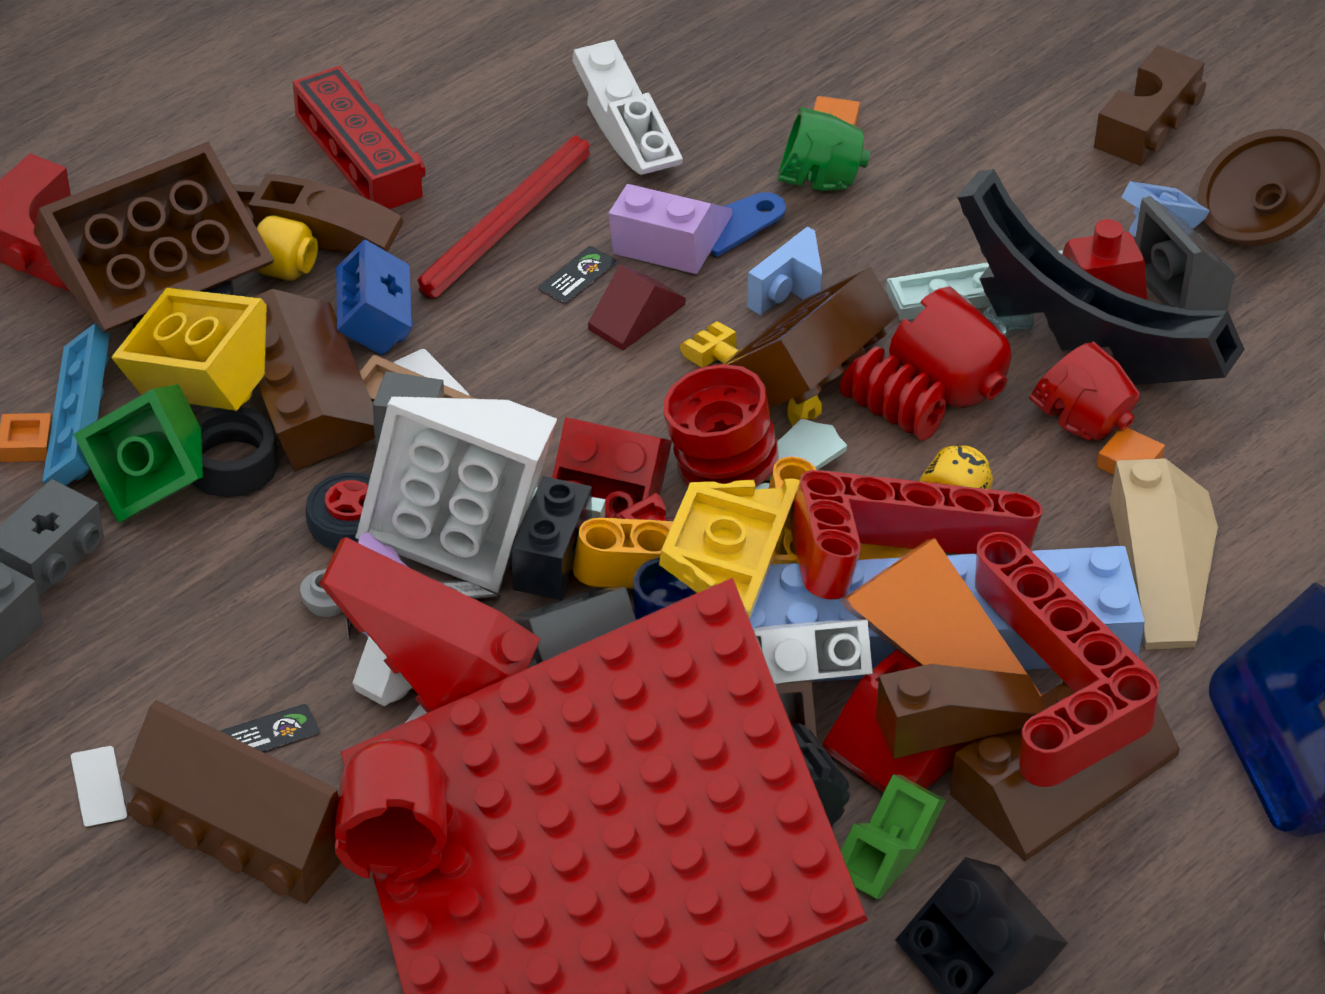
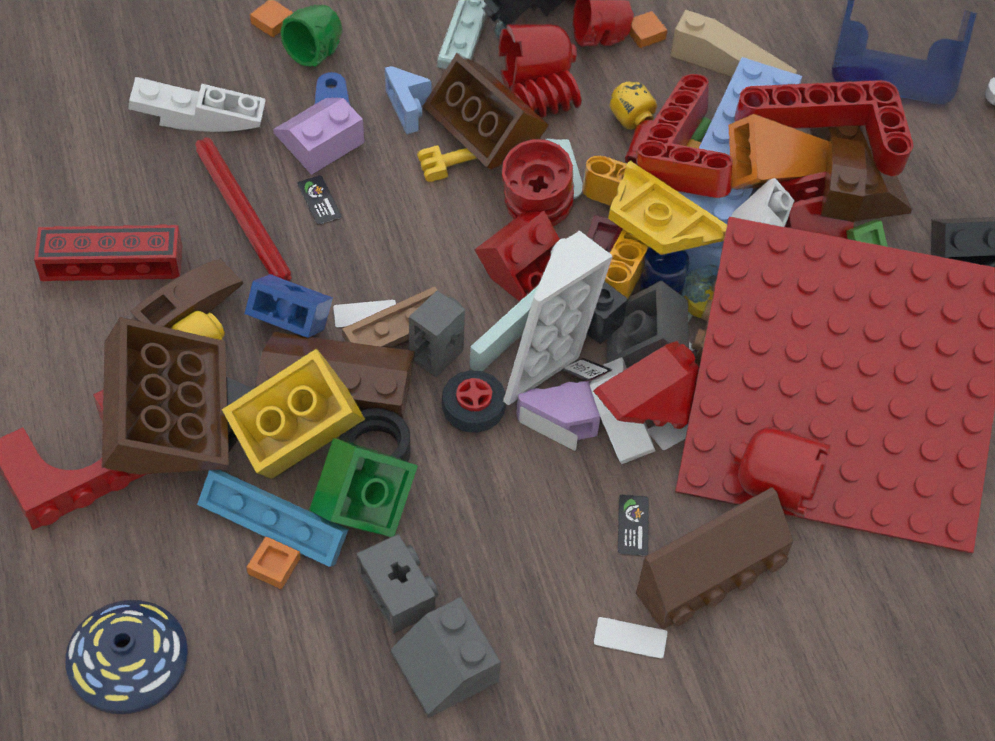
camera: 65 degrees left, 10 degrees up
(315, 596) = (532, 451): light grey plate -> none
(632, 307) = (380, 185): dark red slope -> none

